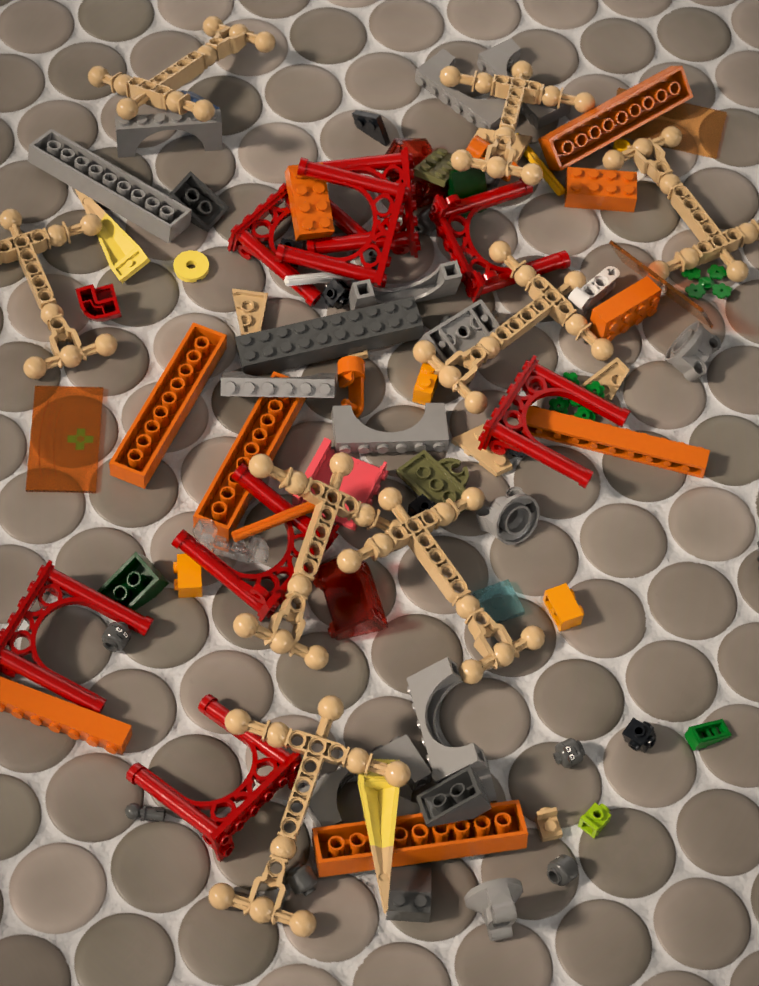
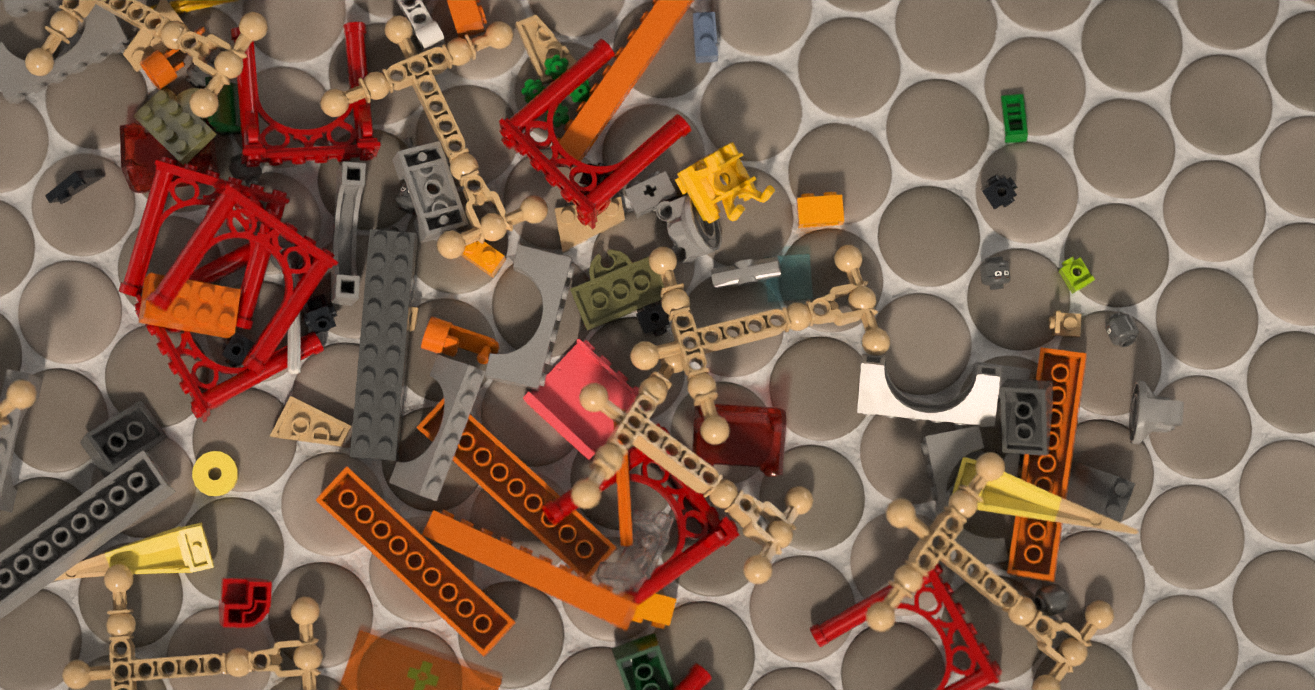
camera: 65 degrees left, 25 degrees up
(189, 472) = (530, 569): none -> orange brick
(489, 566) = (746, 272): none -> light grey piece
(521, 476) = (644, 203): none -> light grey brick
(544, 505) = (705, 188): none -> yellow piece
(666, 486) = (705, 37): none -> sand blue brick

